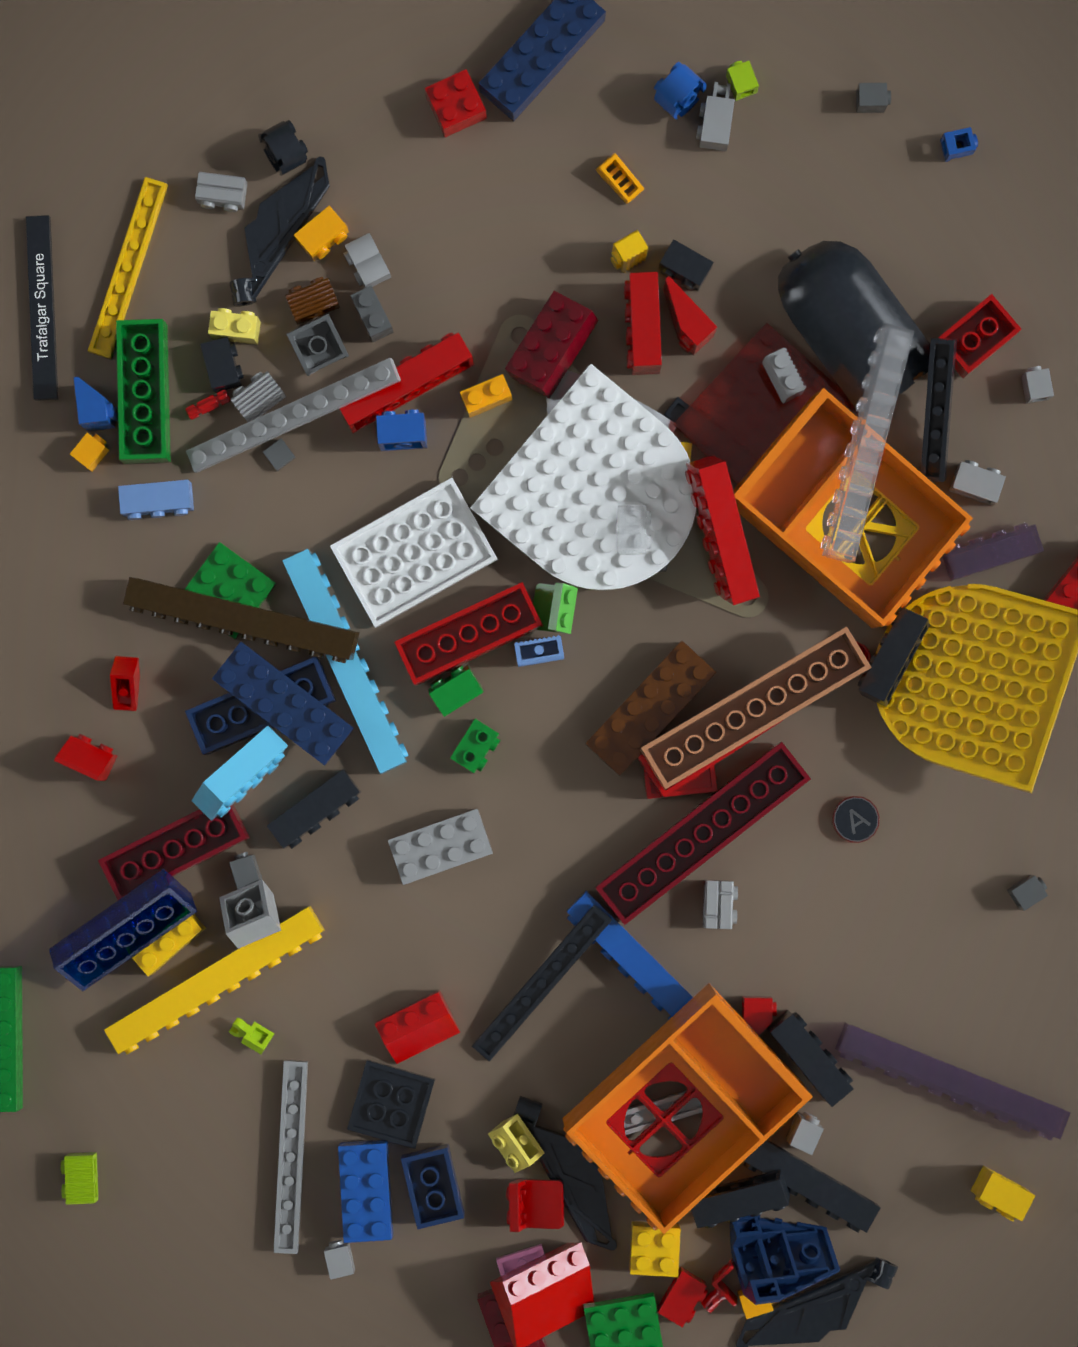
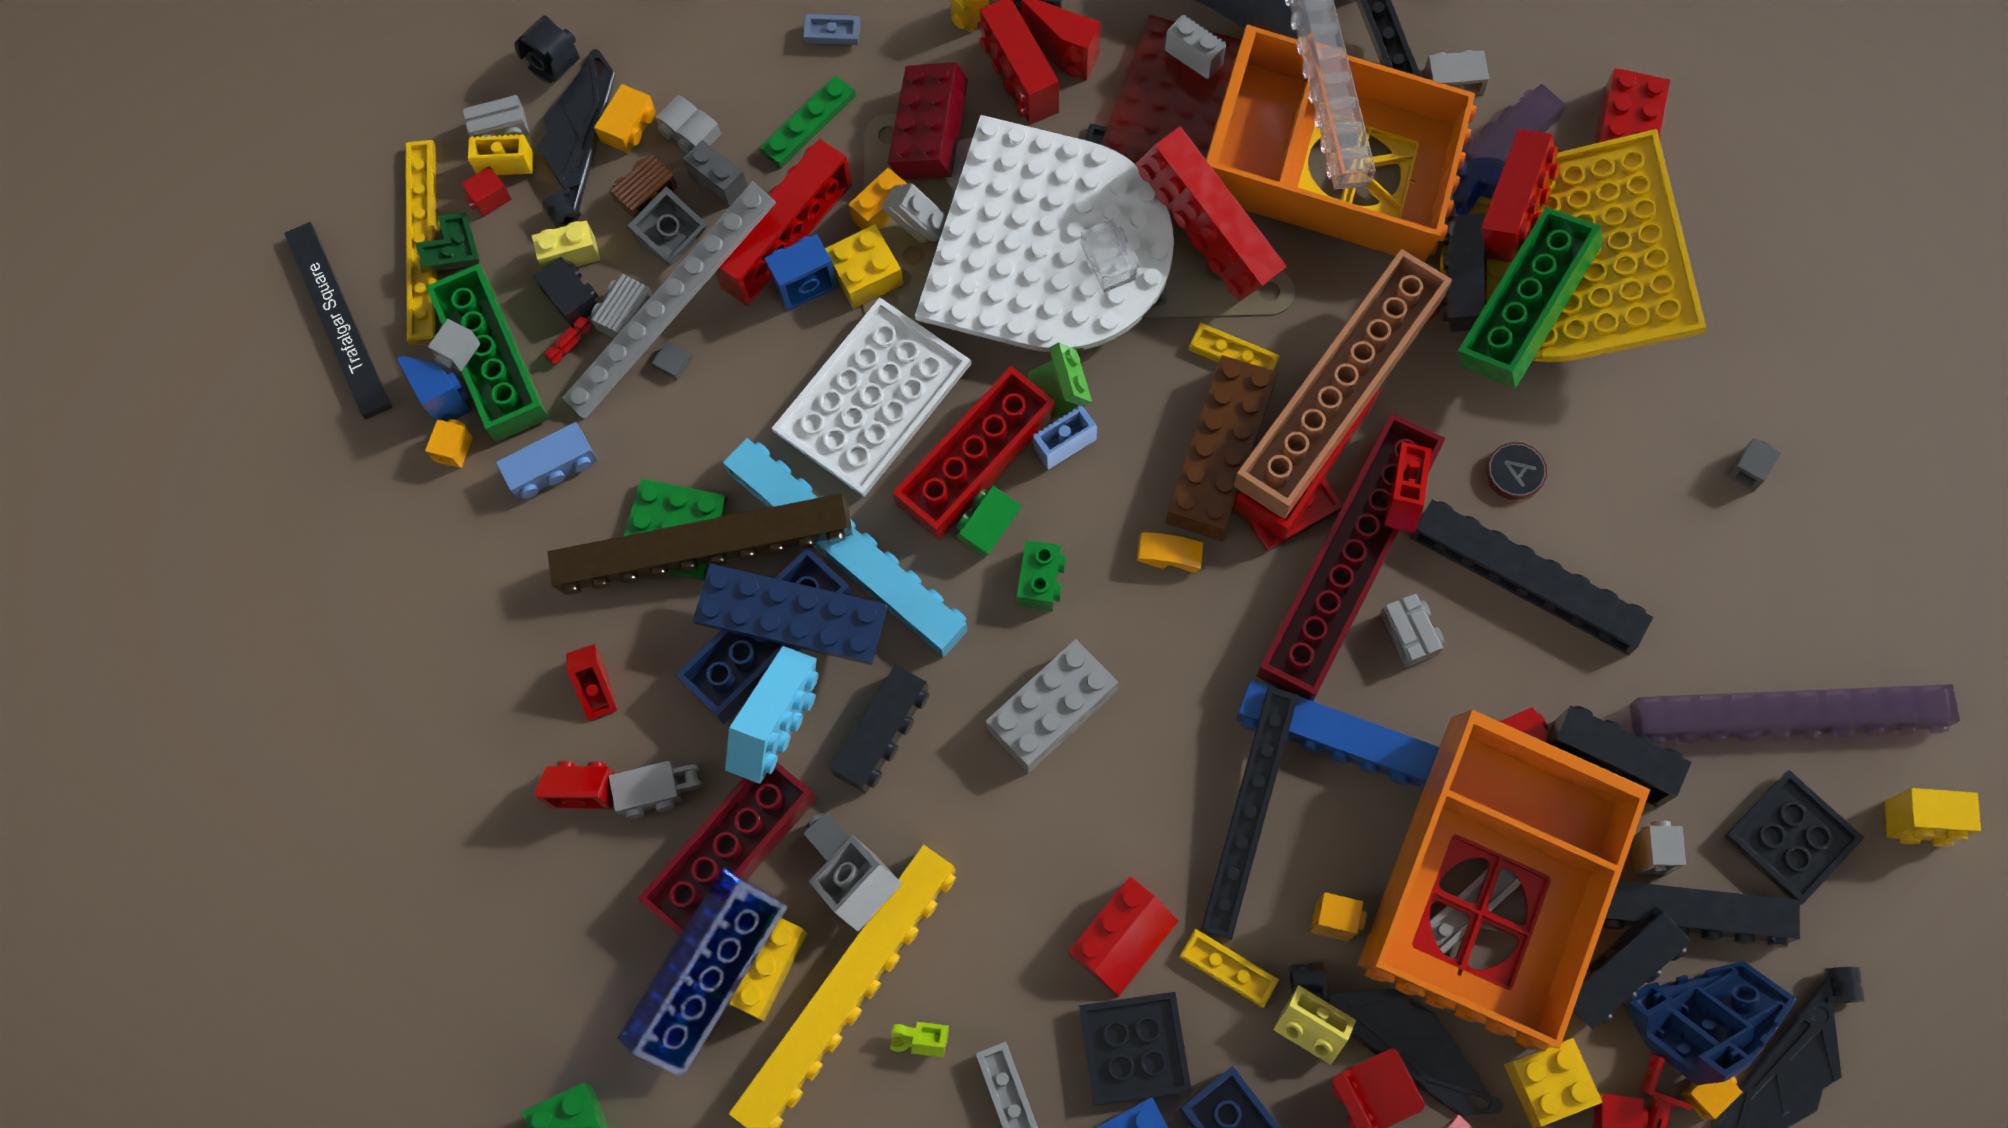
camera: 20 degrees left, 15 degrees down
(118, 385) = (453, 345): none -> light grey brick
(138, 781) = (651, 788): none -> light grey brick
(151, 290) = (454, 250): none -> dark green plate
(190, 250) = (485, 192): none -> red brick
(213, 226) = (503, 154): none -> yellow brick
(451, 445) = (865, 266): none -> yellow brick
(462, 296) = (807, 121): none -> green plate
(479, 1078) = (1229, 968): none -> yellow tile
(507, 421) = (915, 212): none -> light grey brick
(513, 224) = (831, 29): none -> sand blue plate
(565, 1081) = (1338, 917): none -> light orange brick
(576, 769) = (1166, 549): none -> light orange slope
(696, 634) = (1214, 343): none -> yellow tile
(763, 806) = (1408, 487): none -> red slope
(822, 903) = (1532, 577): none -> black brick
(905, 1163) = (1794, 837): none -> black plate
(924, 704) = (1530, 297): none -> green brick
(946, 585) = (1477, 179): none -> clear blue brick
(960, 620) = (1520, 194): none -> red brick

